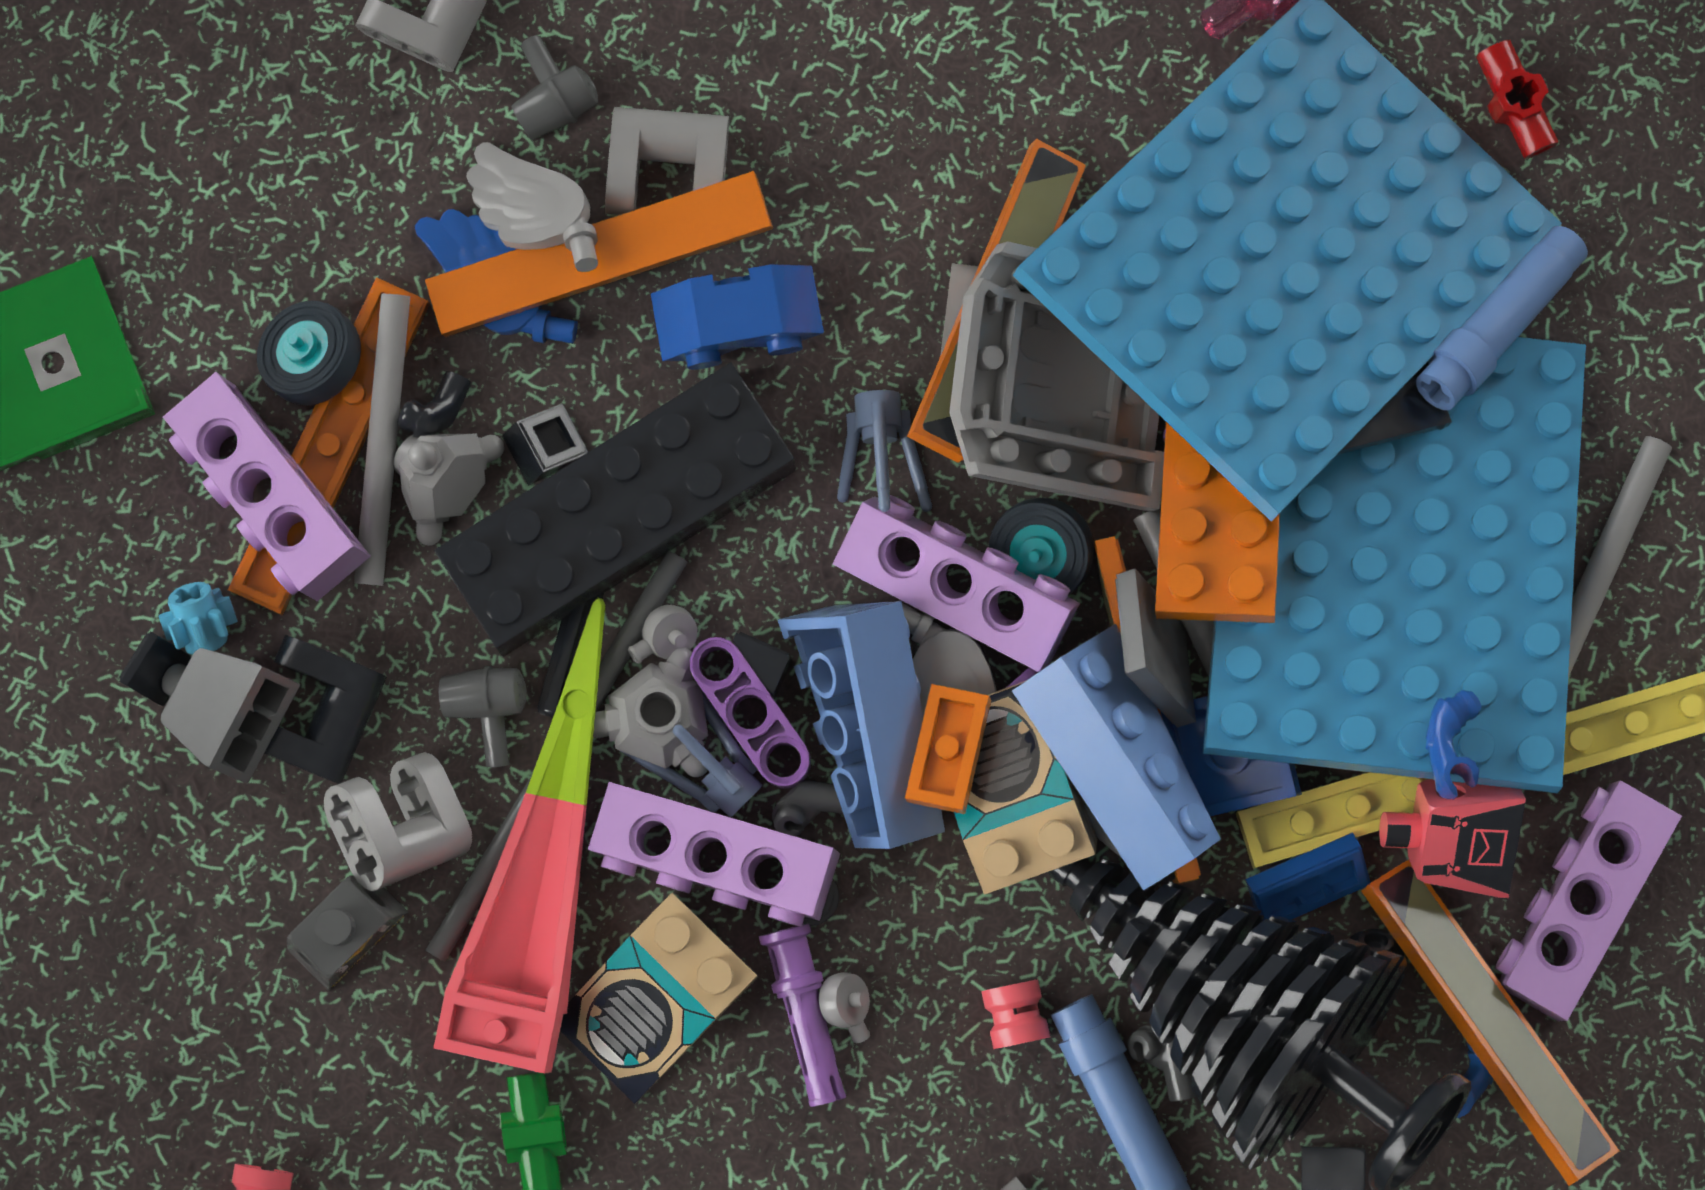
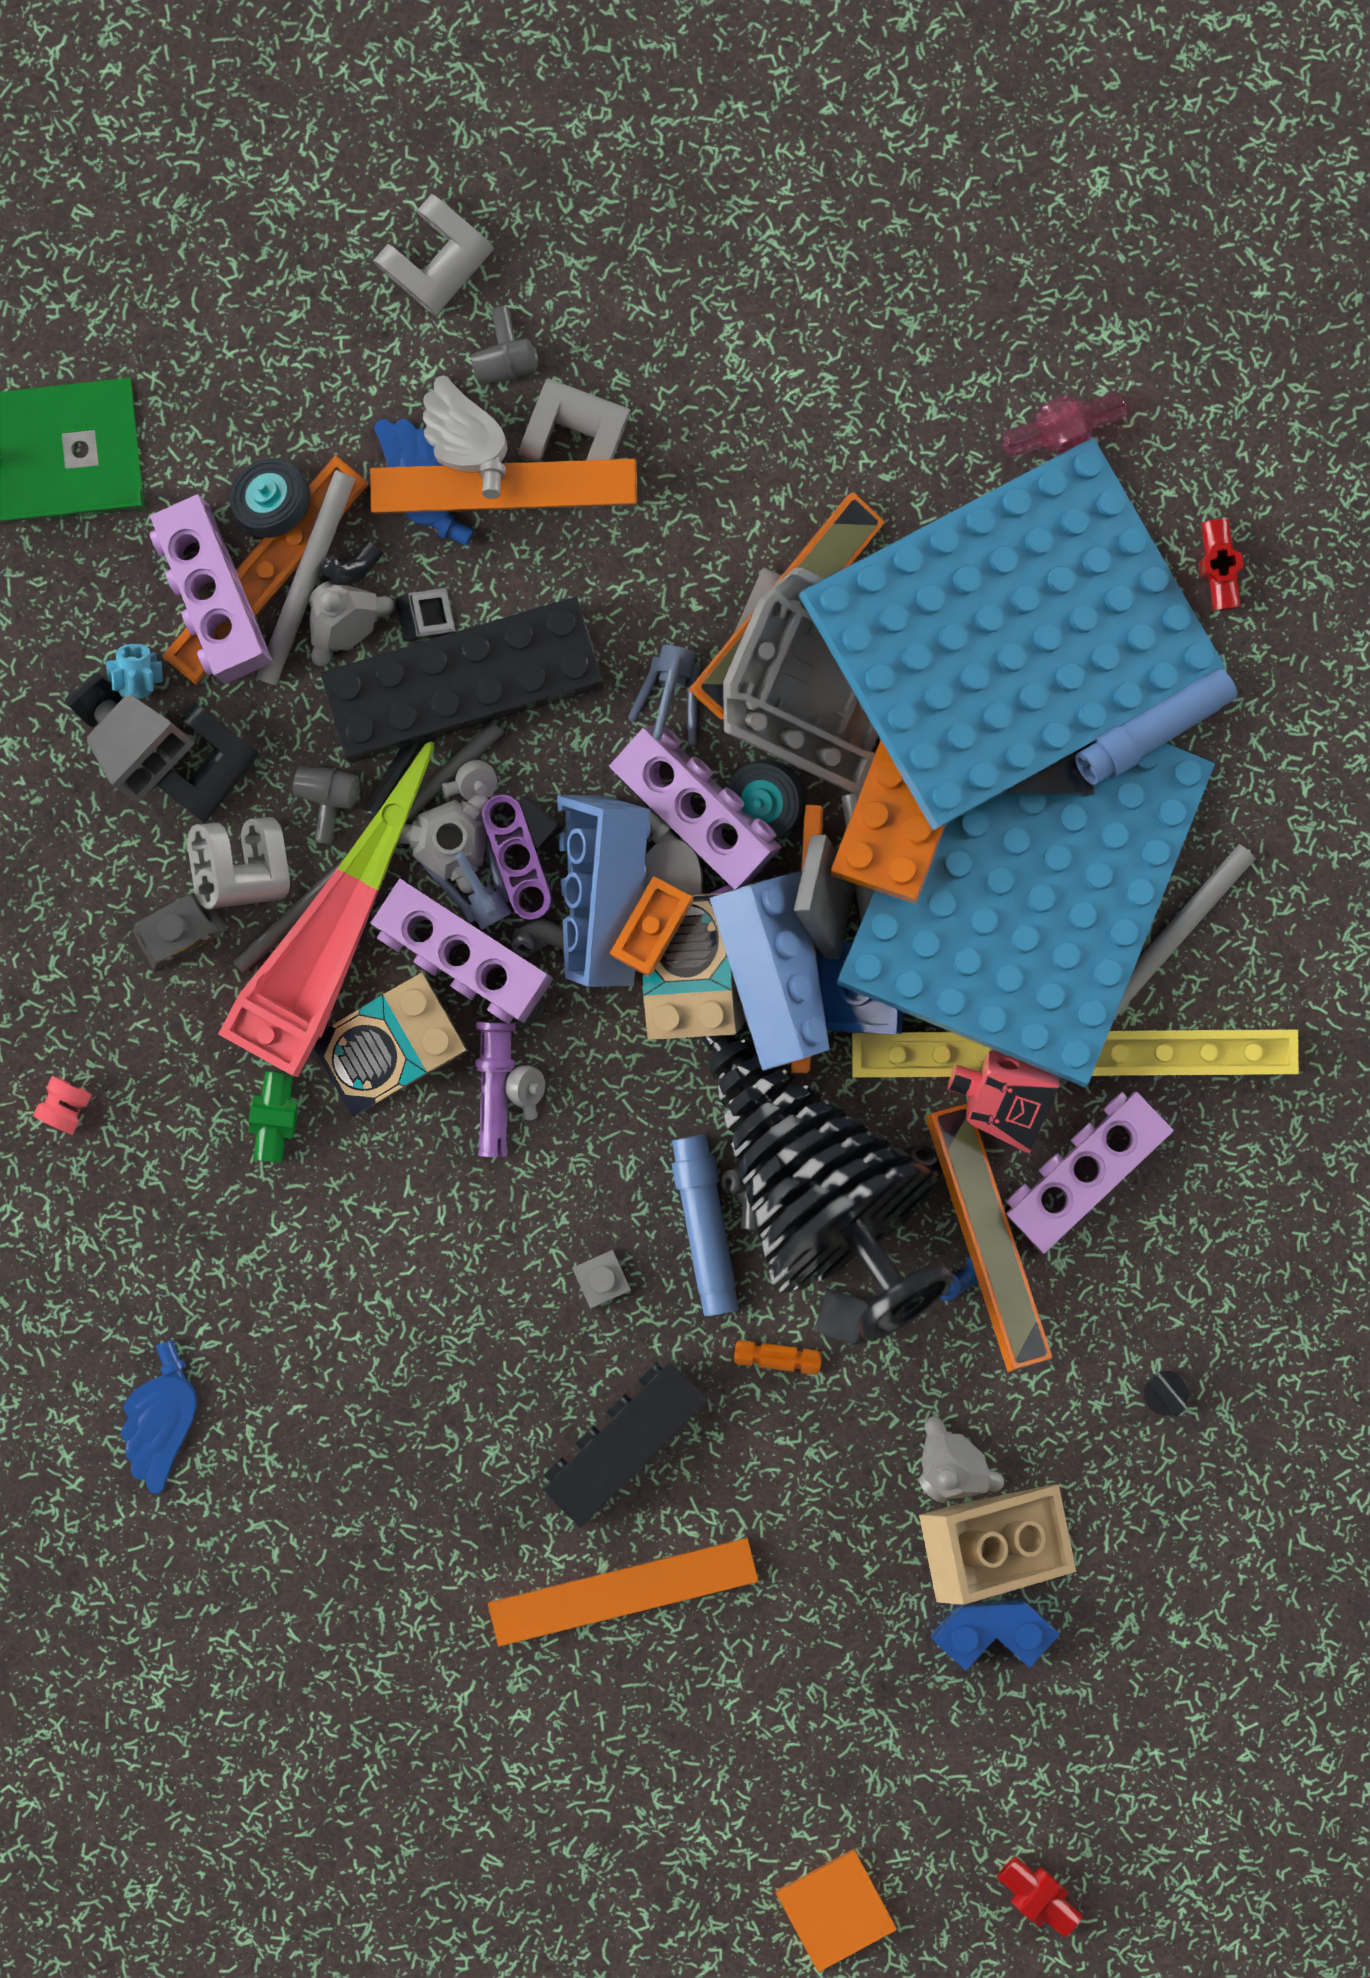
camera: 20 degrees right, 5 degrees up
(763, 309) = (610, 561): blue brick -> none
(1017, 1028) = (646, 1143): coral wheel -> none
(1310, 879) = (889, 1098): blue plate -> none
(1445, 723) = (1015, 1013): blue piece -> none

